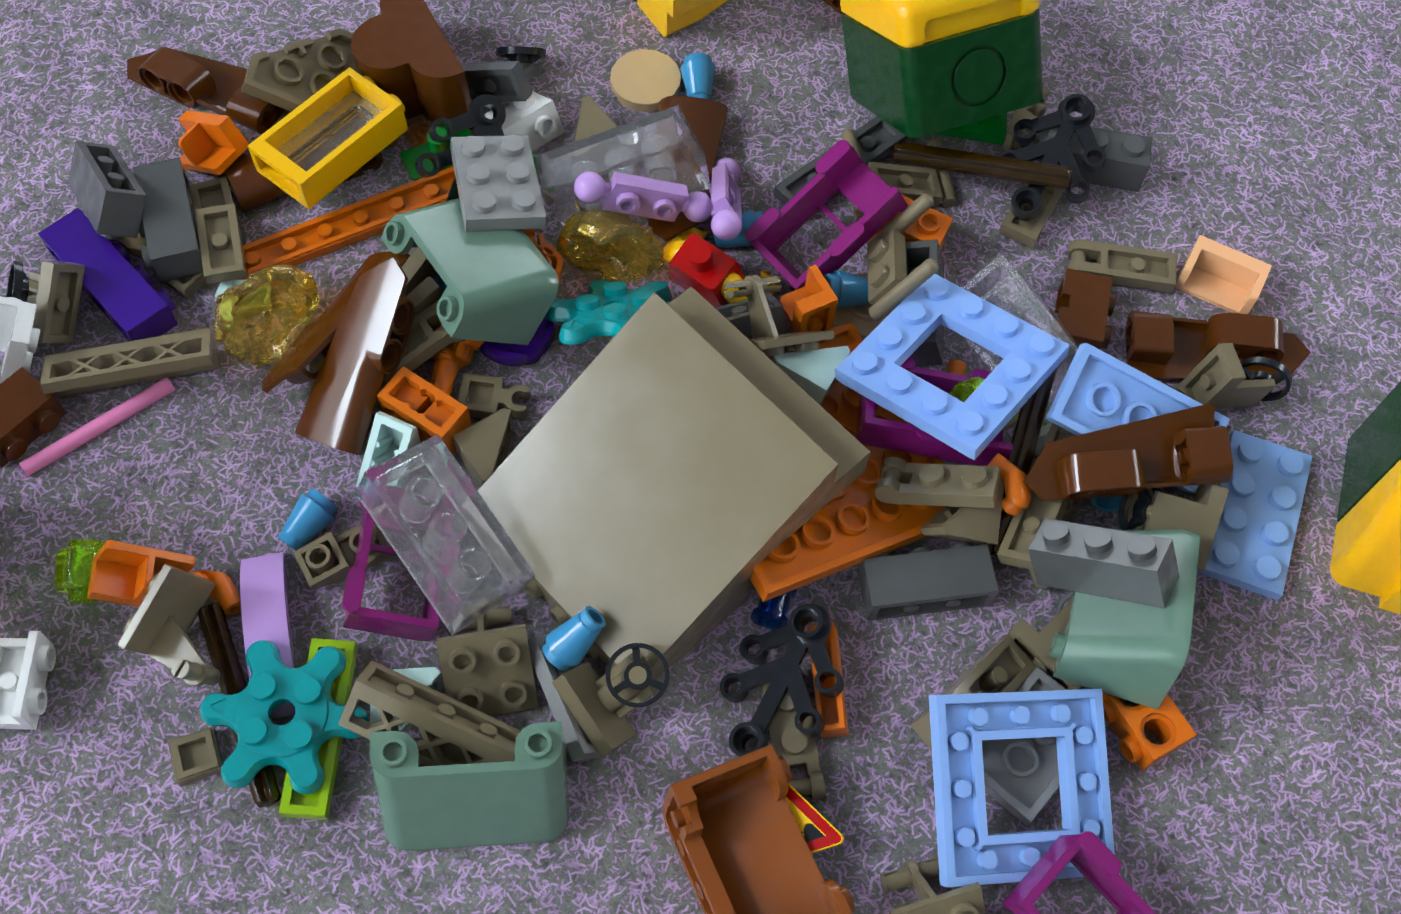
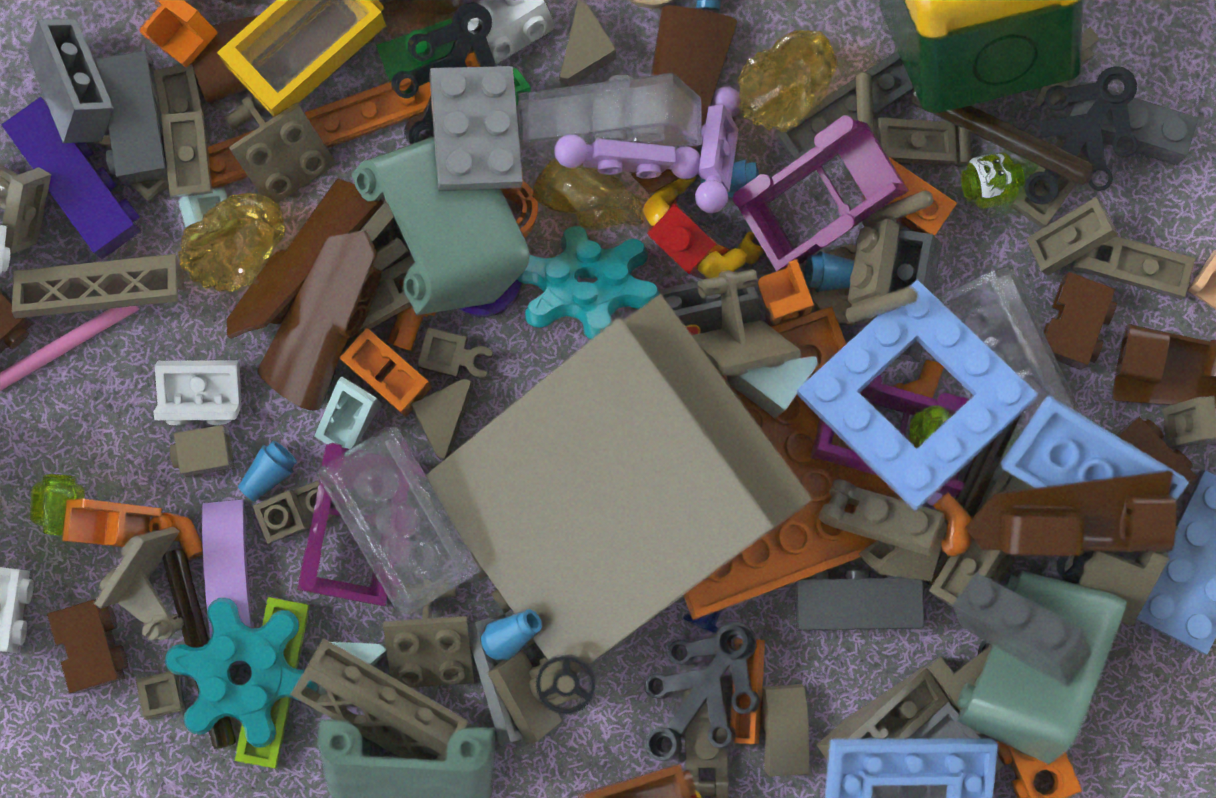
camera: 15 degrees right, 20 degrees up
(117, 713) = (89, 646): none -> reddish brown brick
(234, 448) = (197, 391): none -> white bracket
(239, 505) = (202, 451): none -> dark tan brick
(312, 234) = (280, 152): none -> dark tan plate
(780, 141) = (787, 80): none -> clear yellow piece
(876, 714) = (787, 730): none -> dark tan slope
(979, 208) = (992, 180): none -> clear neon green head
(1062, 243) = (1072, 236): none -> dark tan plate

